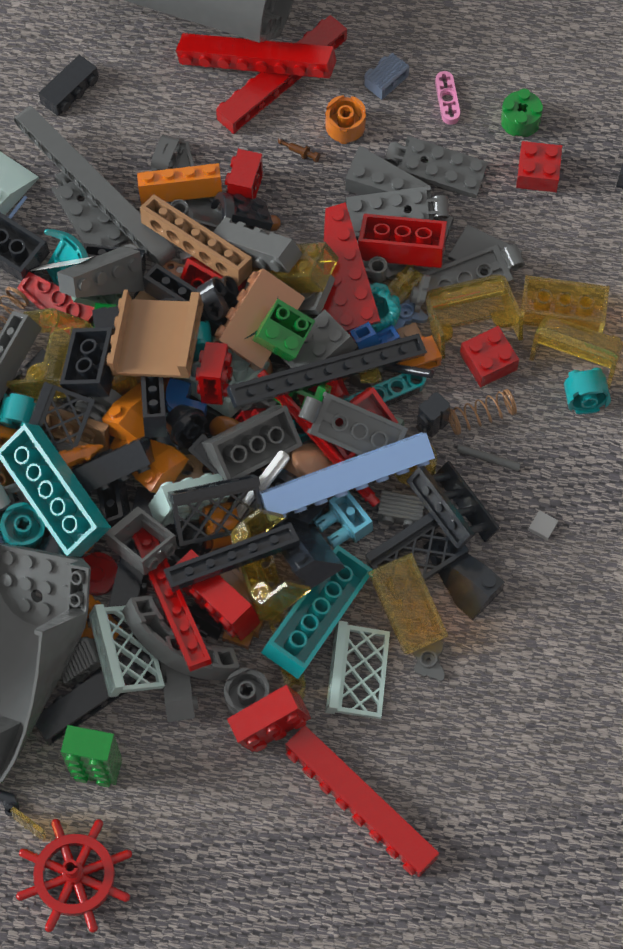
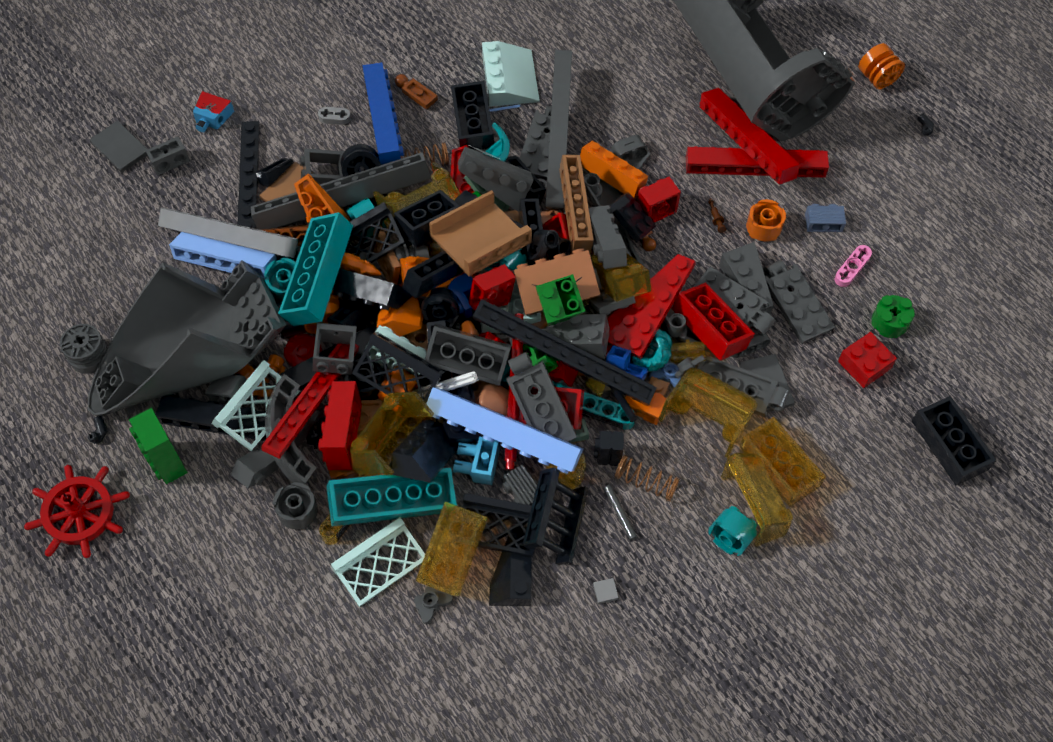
camera: 45 degrees right, 5 degrees down
(28, 823) = (87, 455): clear yellow piece -> none
(69, 85) = (616, 63): black brick -> none
(231, 557) = (369, 407): black plate -> none
(269, 719) = (285, 532): red brick -> none
(361, 801) = (283, 647): red brick -> none
(489, 356) = (692, 448): red brick -> none

